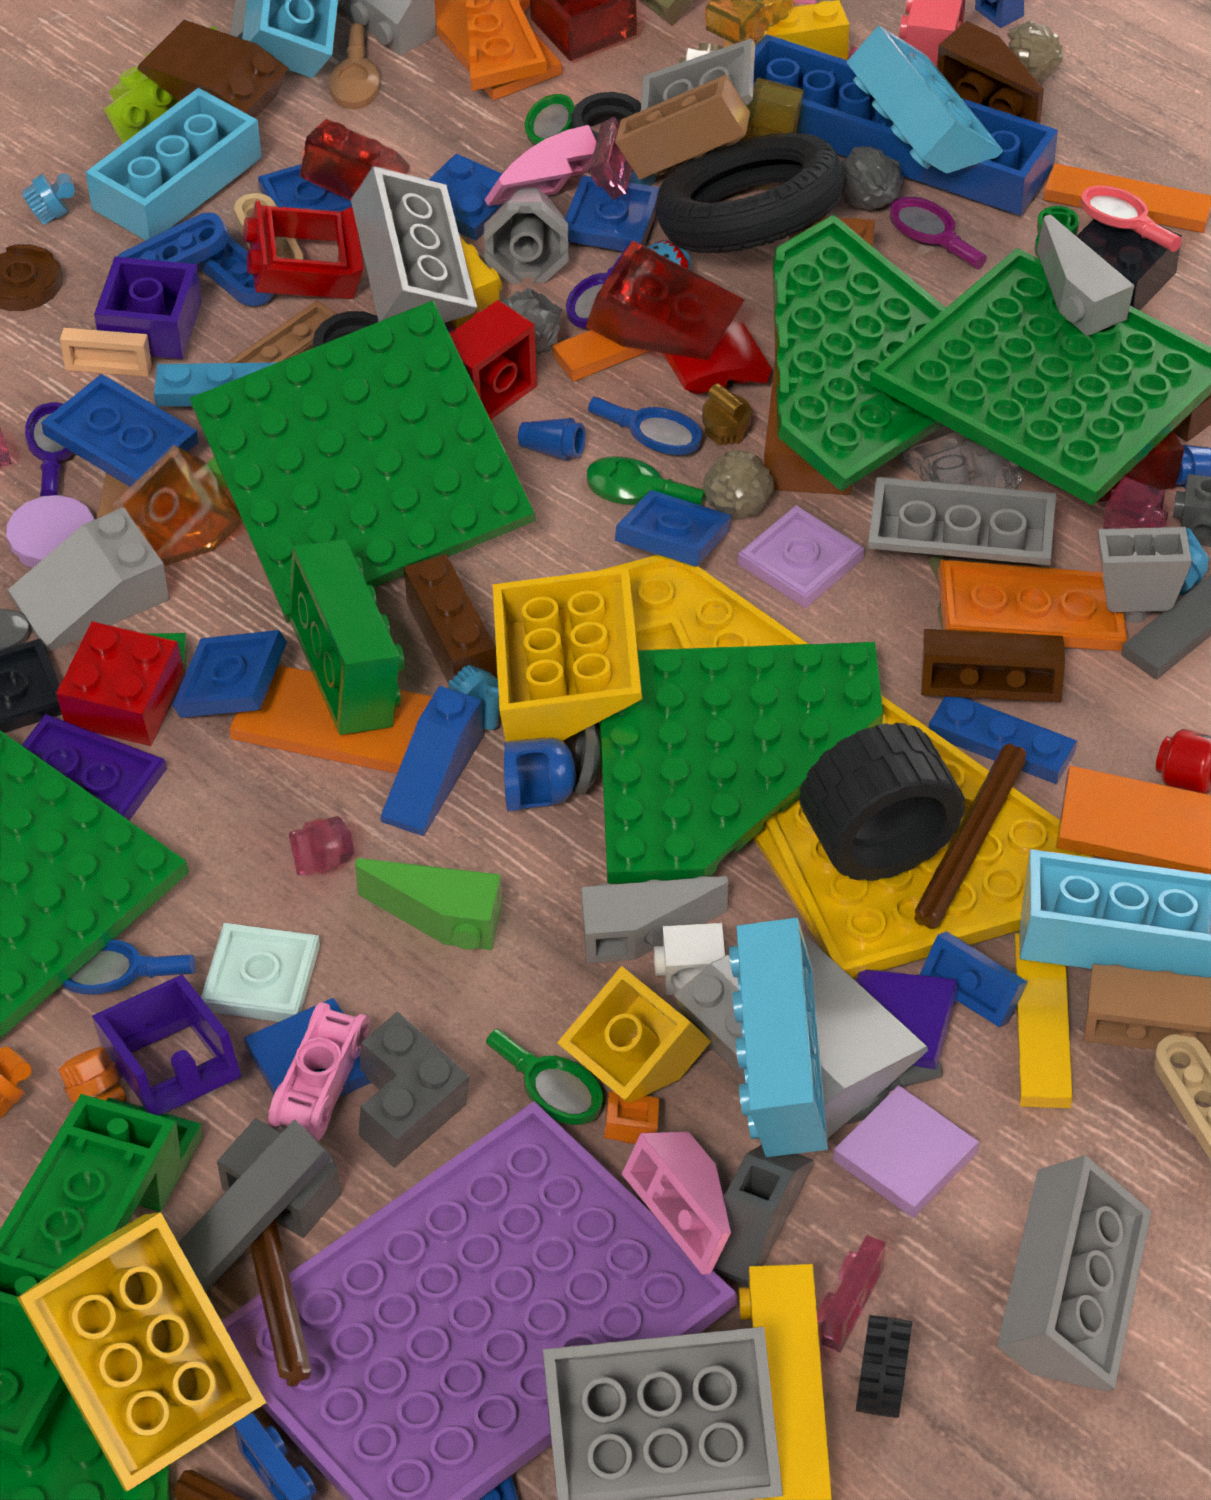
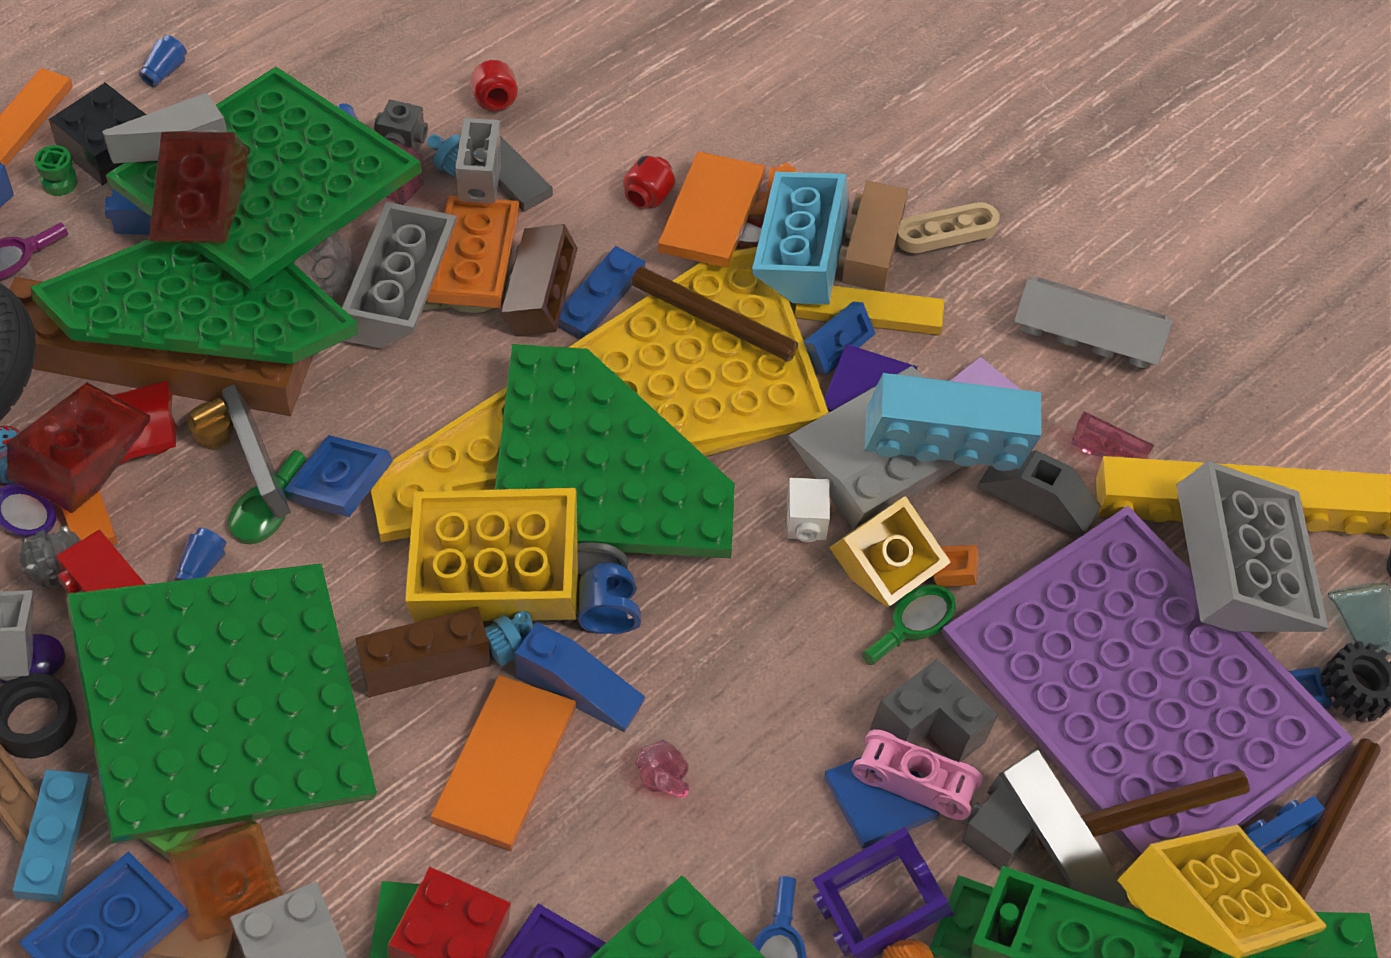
camera: 90 degrees left, 5 degrees up
(229, 674) = (452, 834): blue plate -> none
(260, 972) = (788, 831): light aqua tile -> none
(344, 636) = (442, 725): green brick -> none
(444, 903) = (736, 683): bright green slope -> none
(629, 918) = (766, 541): light grey slope -> none
(653, 426) = (202, 480): blue piece -> none
(682, 1192) = (1047, 526): bright pink slope -> none
(684, 450) = (255, 451): none -> dark grey tile
(738, 484) = (300, 422): dark tan piece -> none
(800, 556) = (380, 396): lavender tile -> none
(881, 801) = (714, 341): black tyre -> none
(884, 1366) = (1196, 432): black tyre -> none
(990, 305) = (197, 186): none -> clear red slope
(1126, 211) = (78, 105): coral piece -> none

